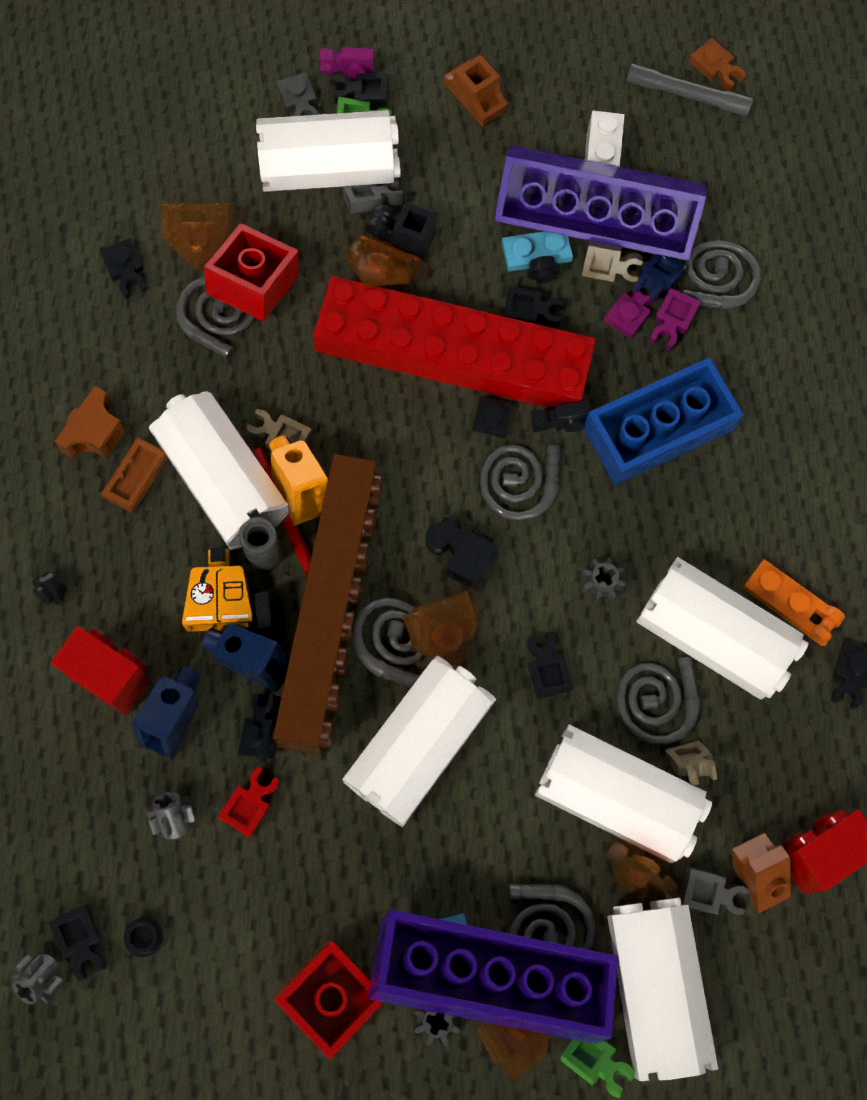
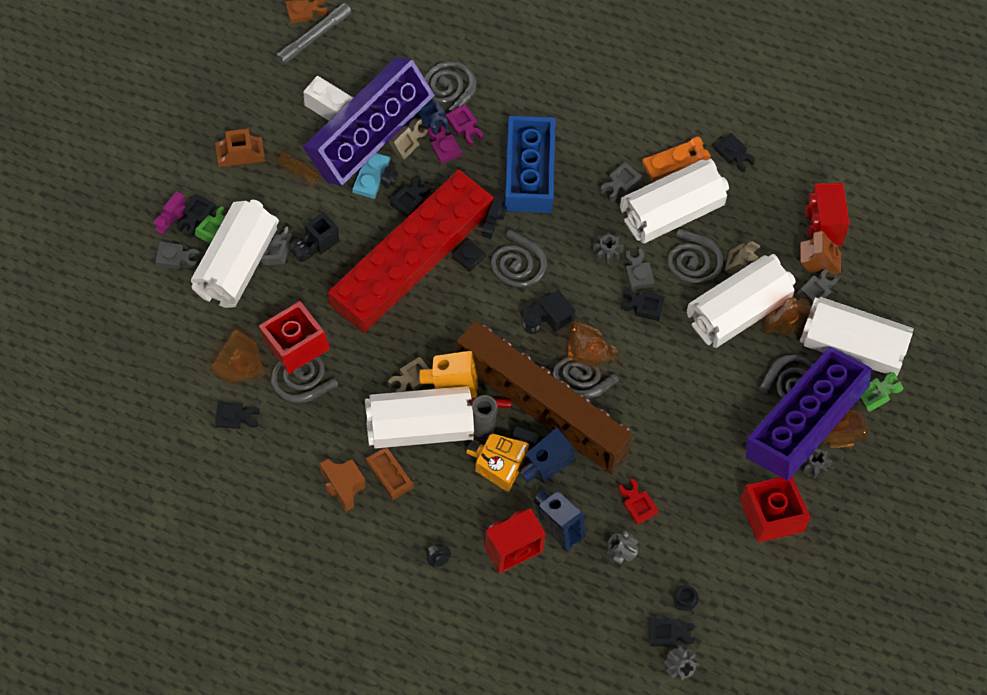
camera: 60 degrees left, 10 degrees down
(258, 731) = (598, 476): black plate -> none
(380, 263) = (333, 262): clear orange plate -> none
(419, 740) = (653, 388): white brick -> none
(494, 166) = (298, 168): none -> clear orange axle
(593, 639) = (639, 273): none -> dark grey plate
(717, 548) = (622, 180): none -> dark grey plate

